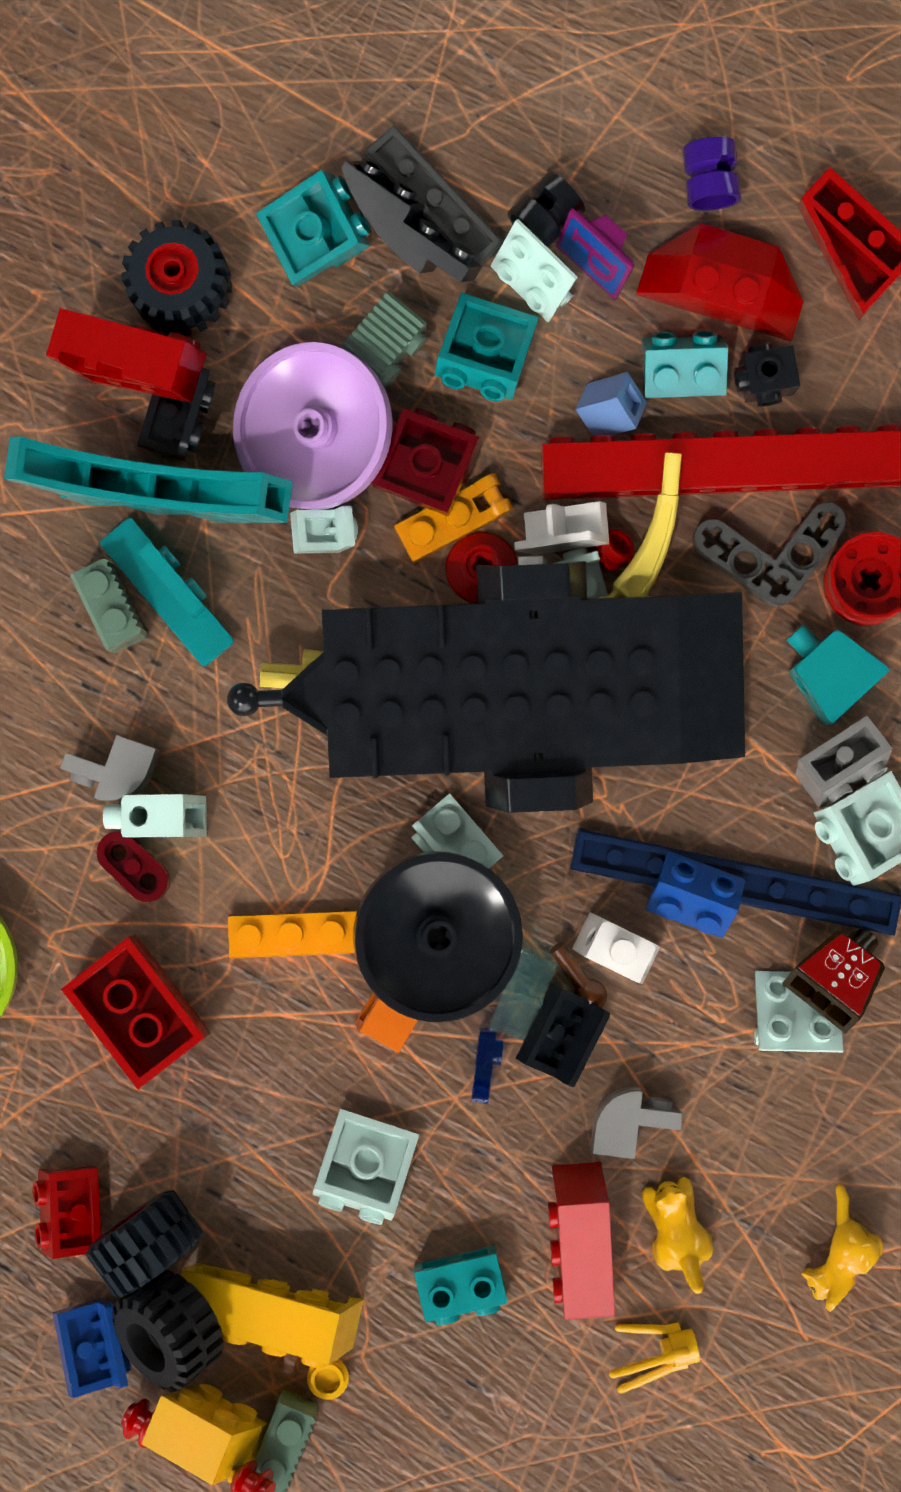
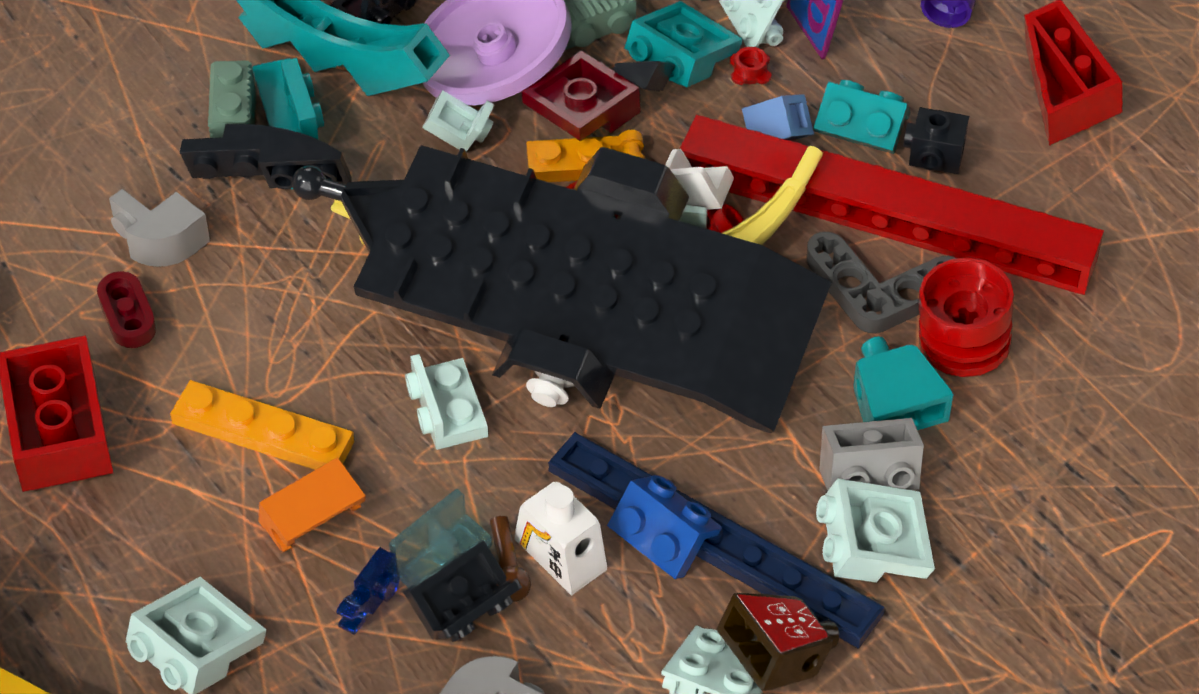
camera: 25 degrees right, 35 degrees down
(158, 815) = (178, 270): light aqua torso -> none
(189, 654) = (261, 150): none -> black slope
(437, 936) = (382, 440): black dish -> none
(472, 412) = (647, 75): none -> black slope
(562, 334) = (750, 66): none -> red plate
(725, 280) = (931, 71): red wedge -> none

